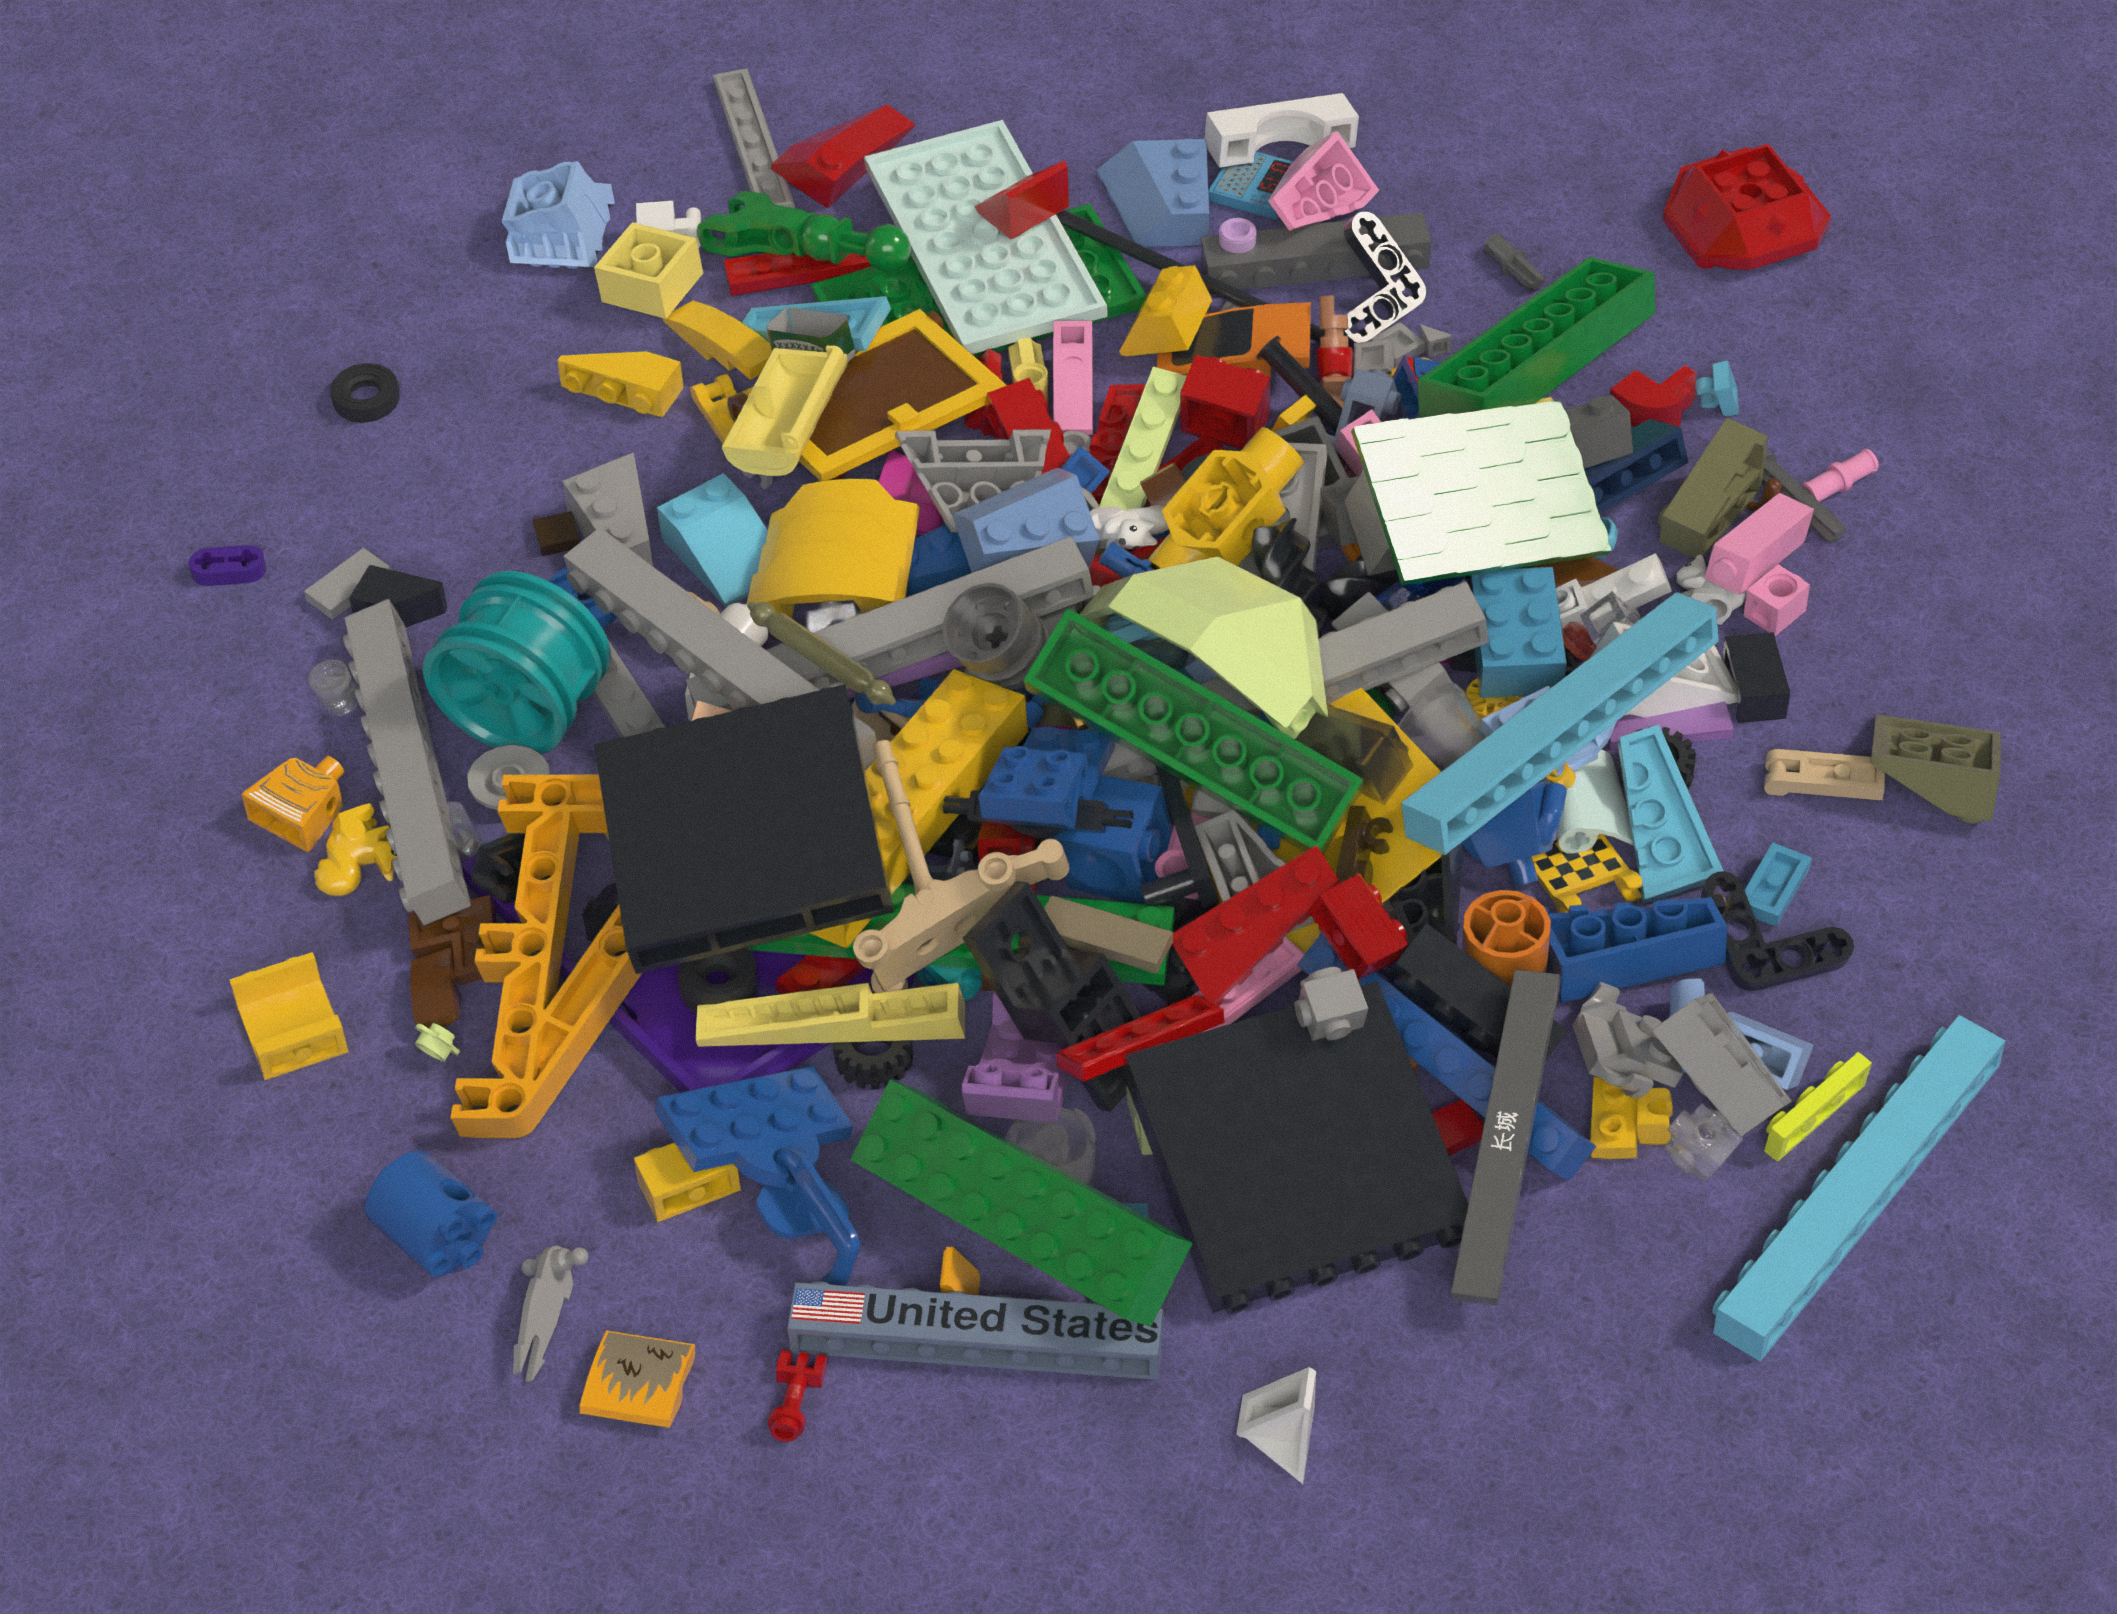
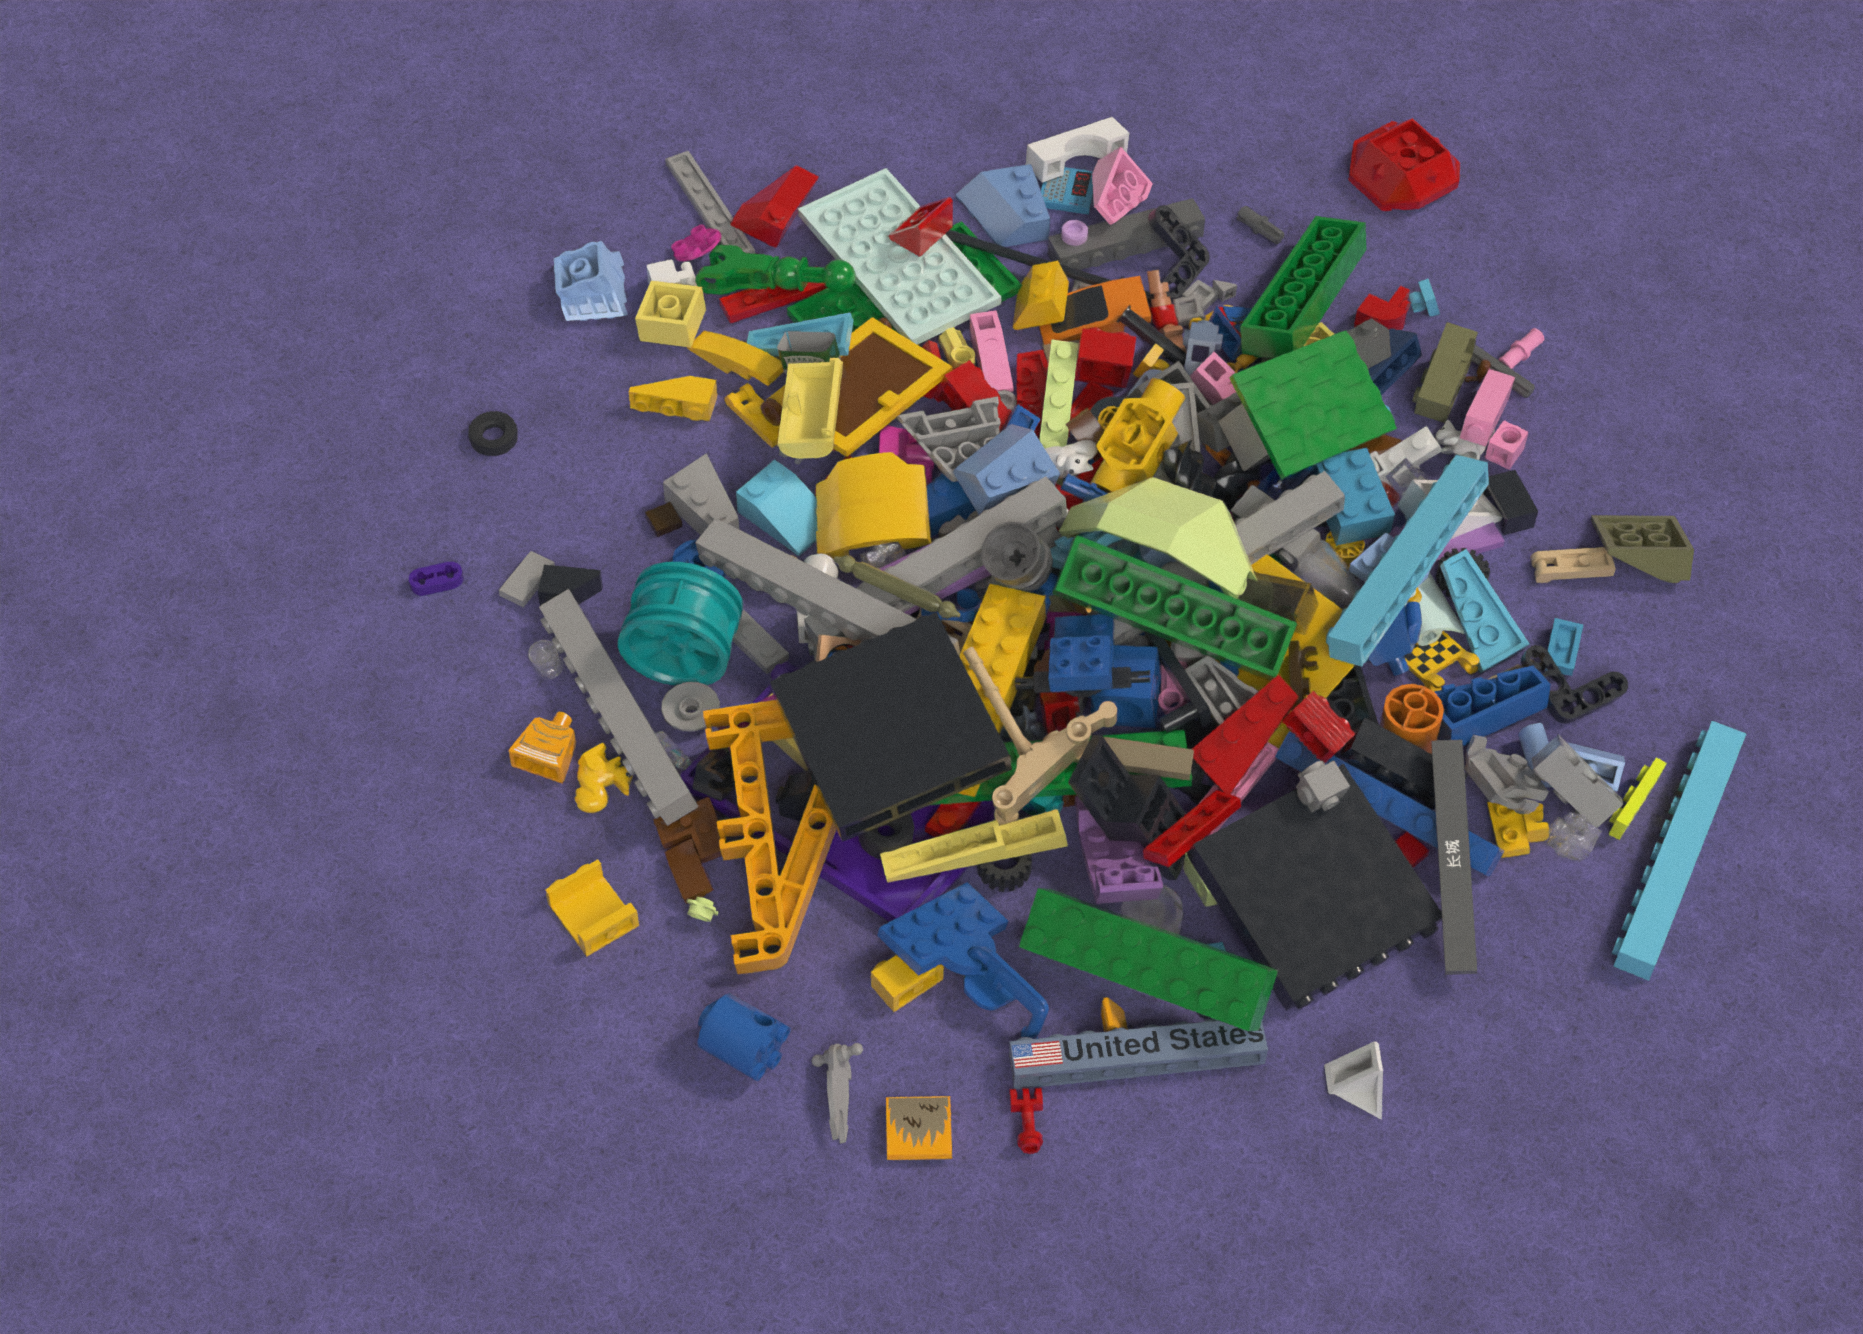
camera: 15 degrees left, 5 degrees up
(717, 189) = (697, 244): none -> dark pink dish

